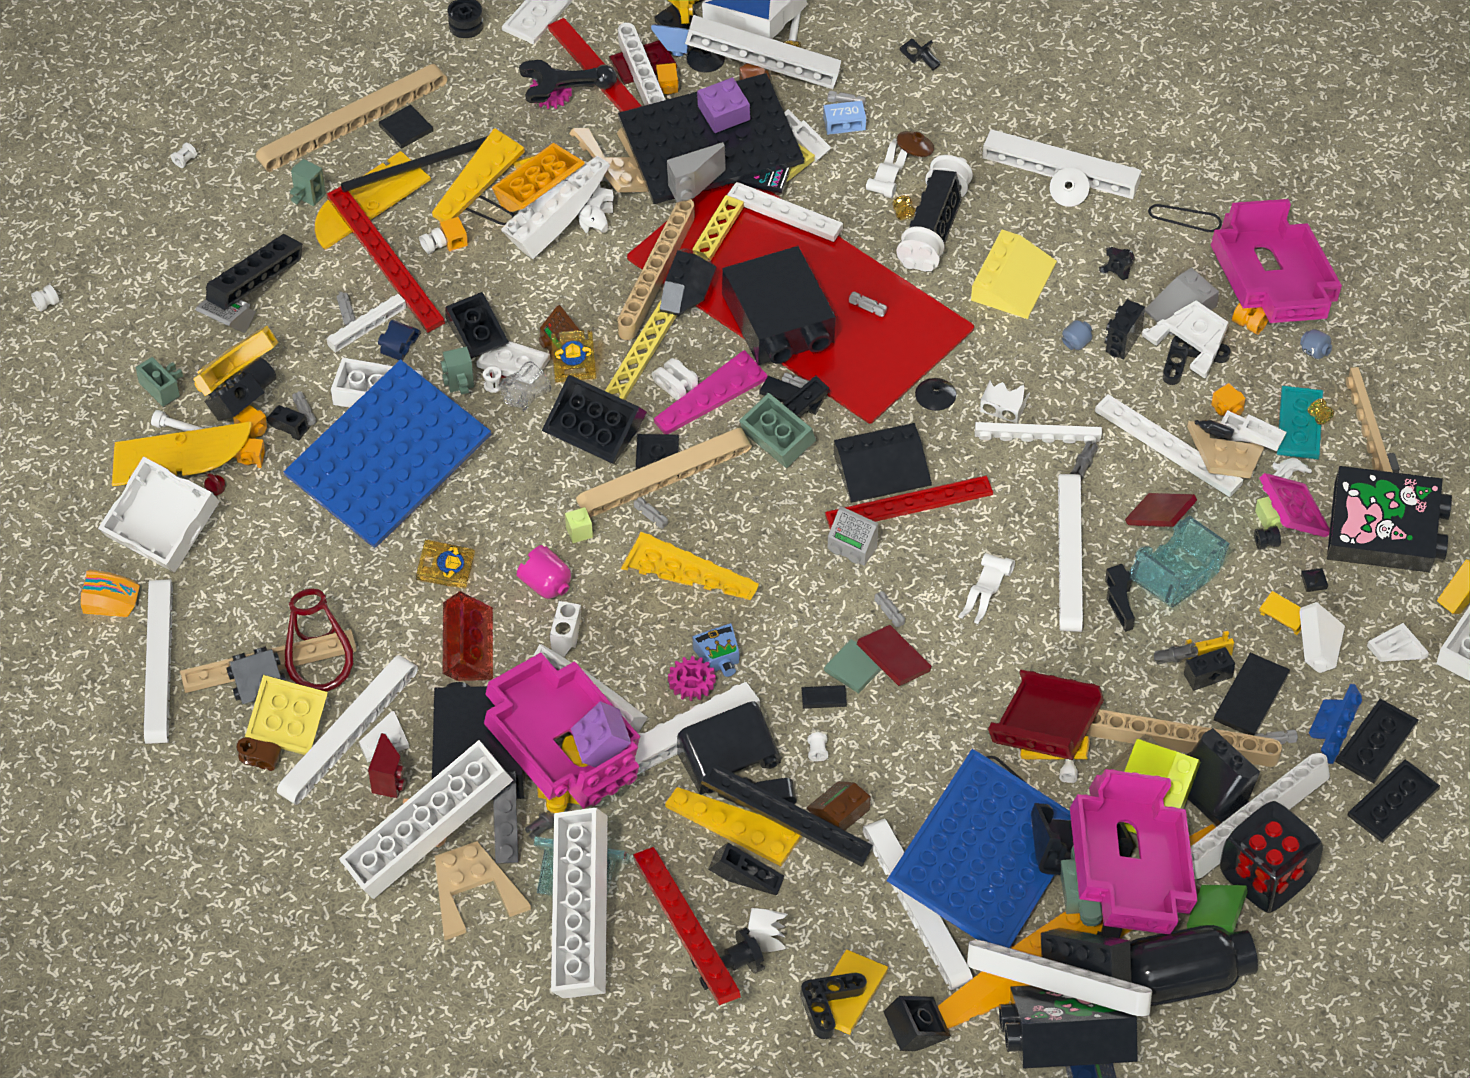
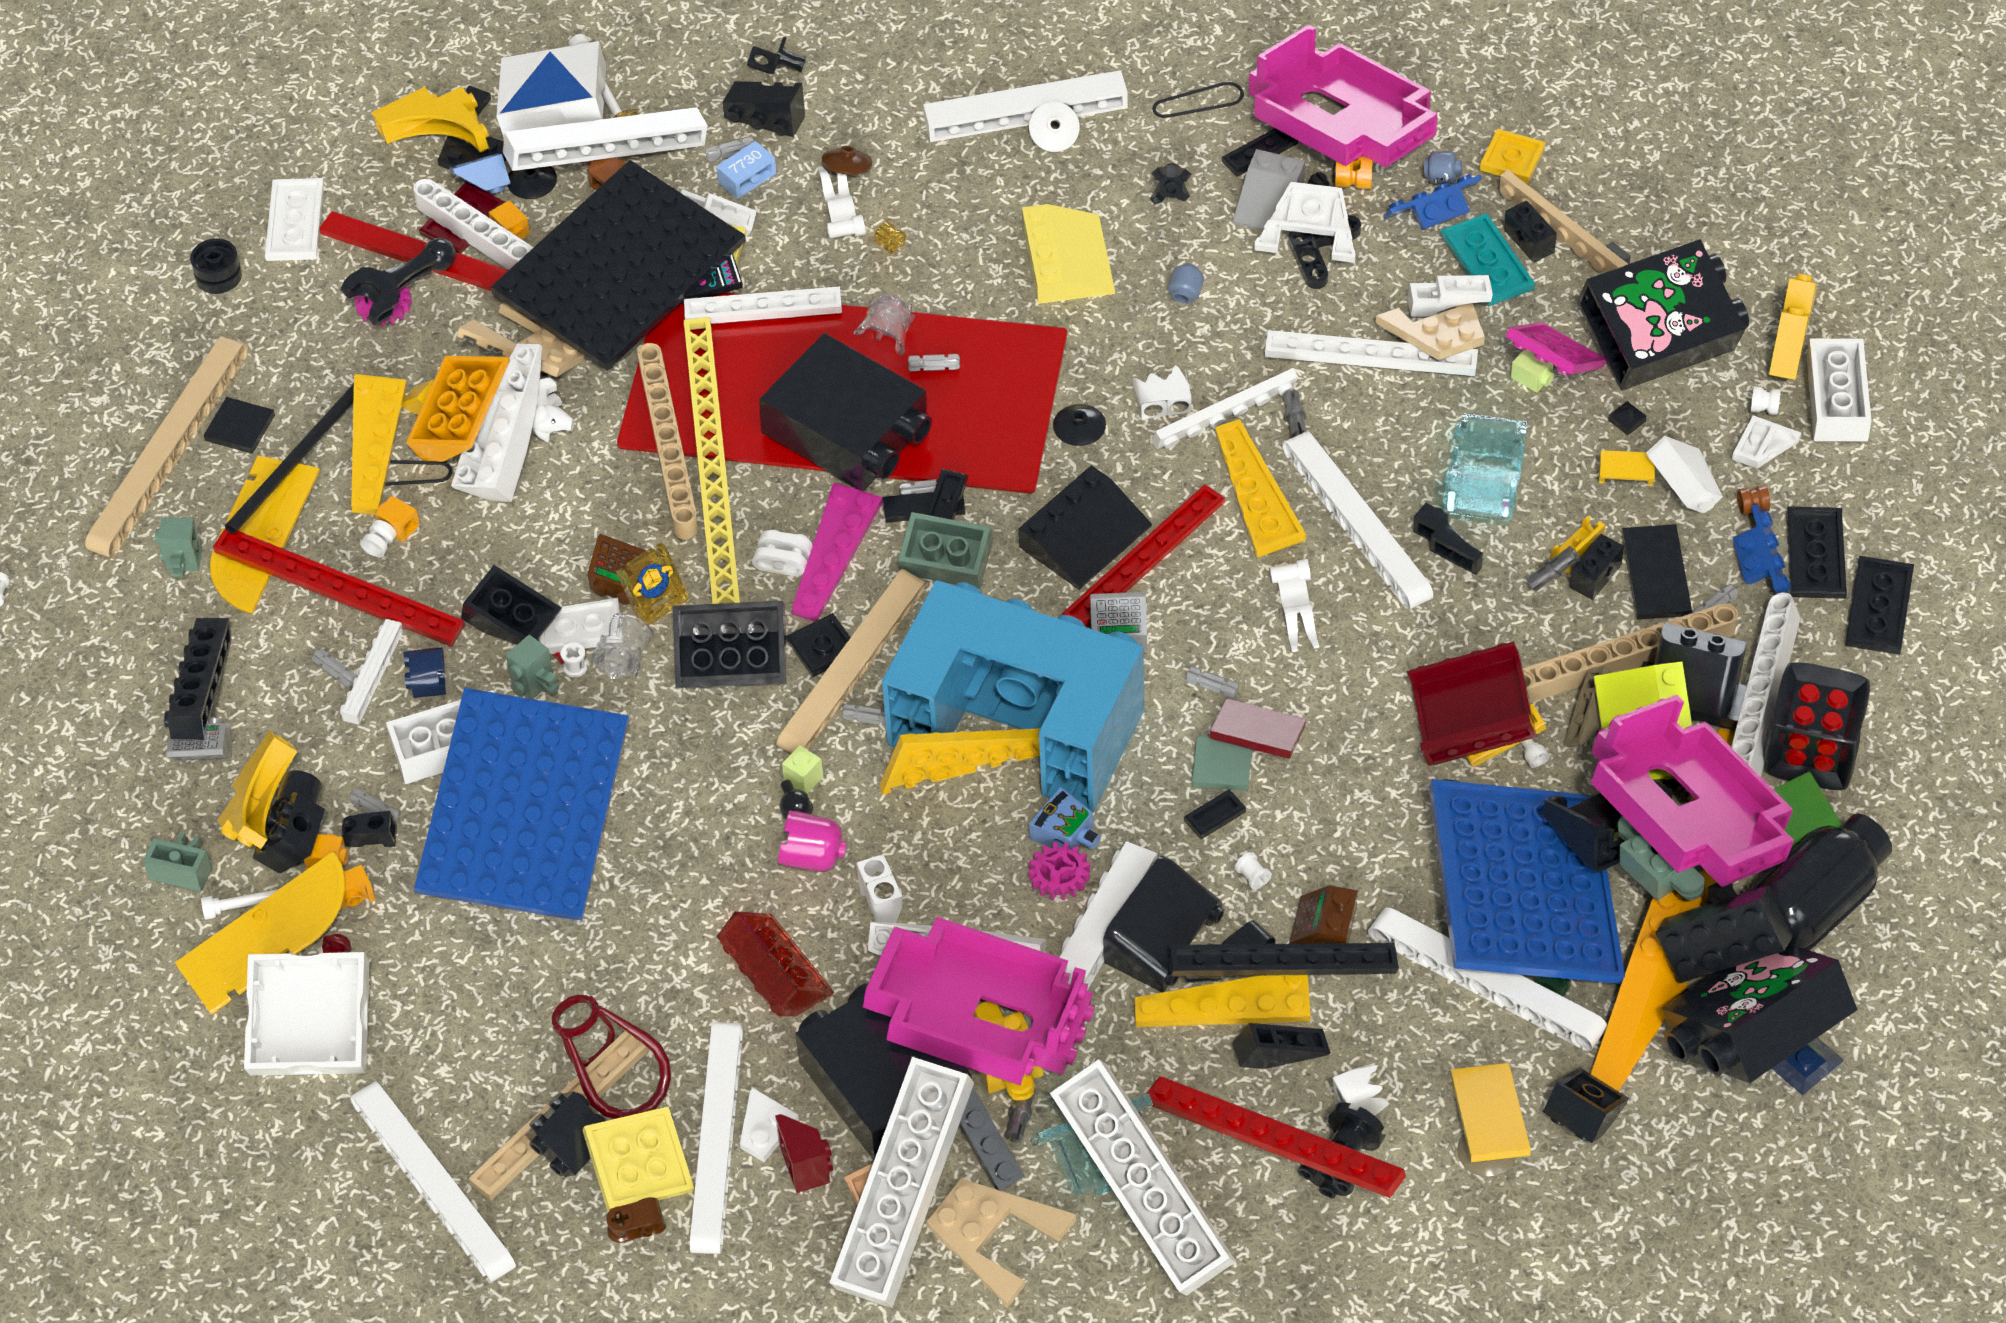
camera: 30 degrees left, 0 degrees up
(108, 594) = (312, 1138): light orange slope -> none
(450, 564) = (687, 890): clear yellow container -> none
(558, 542) = (794, 800): none -> black piece
(600, 734) = (1033, 980): medium lavender brick -> none
(687, 281) = (719, 437): black wedge -> none
(695, 171) = (639, 309): light grey slope -> none
(723, 105) = (615, 217): medium lavender brick -> none
(778, 560) = (1023, 673): none -> dark azure brick
(823, 995) = (1475, 1131): black beam -> none
(855, 259) = (888, 317): none -> clear hat
(888, 82) = (765, 106): none -> black wedge
(934, 217) = (946, 264): brick -> none
(958, 935) = (1556, 985): none -> clear green bush
(1014, 509) = (1261, 502): none -> yellow wing
(1059, 978) = (1715, 967): white beam -> none
(1124, 329) = (1235, 250): black brick -> none
(1161, 509) = (1422, 424): dark red tile -> none
(1207, 269) = (1272, 141): none -> black tile
(1215, 428) = (1414, 308): black piece -> none
(1223, 311) = (1319, 179): none -> black piece
(1228, 399) = (1398, 274): light orange brick -> none
(1267, 537) = (1551, 395): black wheel -> none
(1288, 466) = (1510, 314): white piece -> none
(1294, 369) = (1439, 206): none -> blue bracket
(1320, 411) = (1506, 235): clear yellow wheel -> none
(1344, 418) = (1530, 231): none -> black brick
(1360, 680) = (1748, 498): none -> dark orange wheel
(1374, 360) = (1512, 153): none -> yellow plate
(1420, 617) = (1765, 400): none -> white wheel

